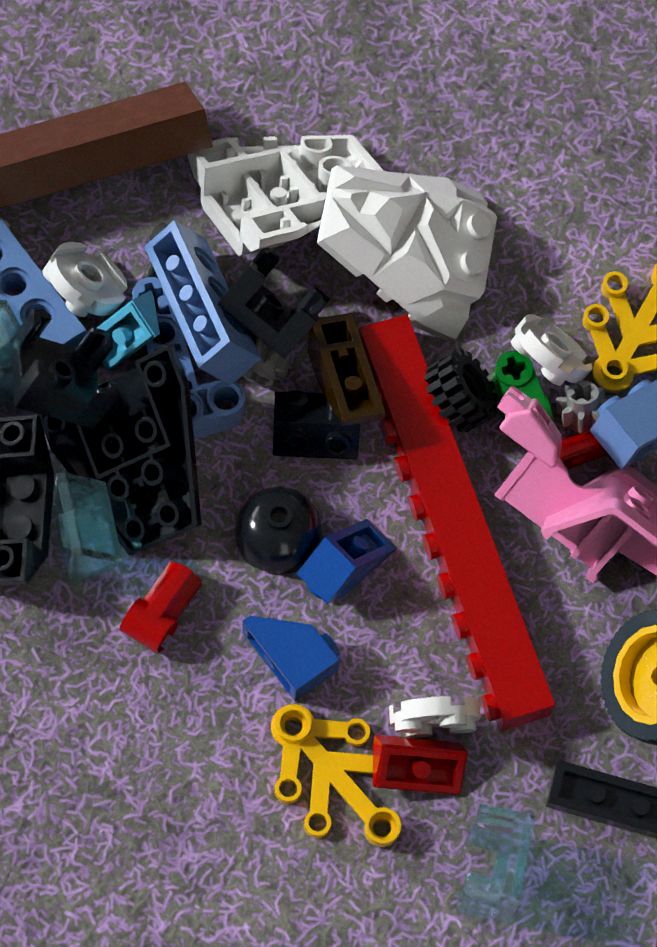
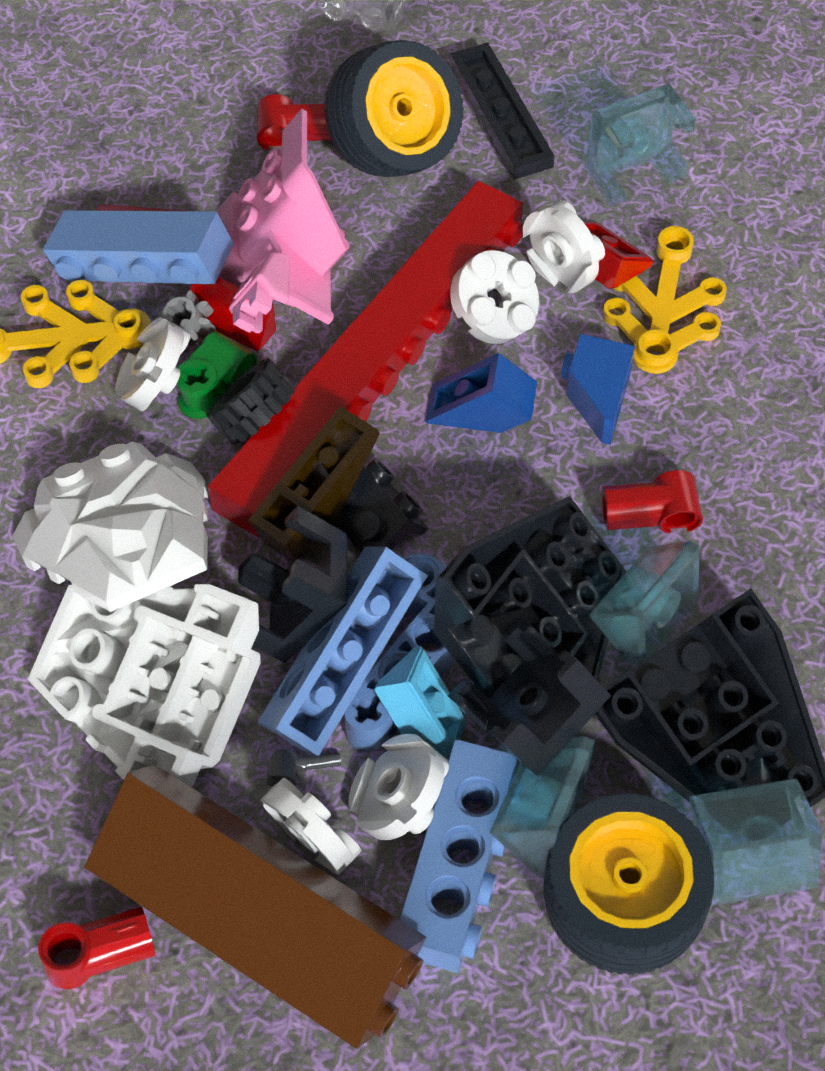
camera: 120 degrees left, 10 degrees down
(101, 206) = (305, 819): none -> white plate
(133, 66) = (102, 944): none -> red piece
(278, 530) = (499, 469): black cylinder -> none
(407, 638) = (515, 284): none -> white plate

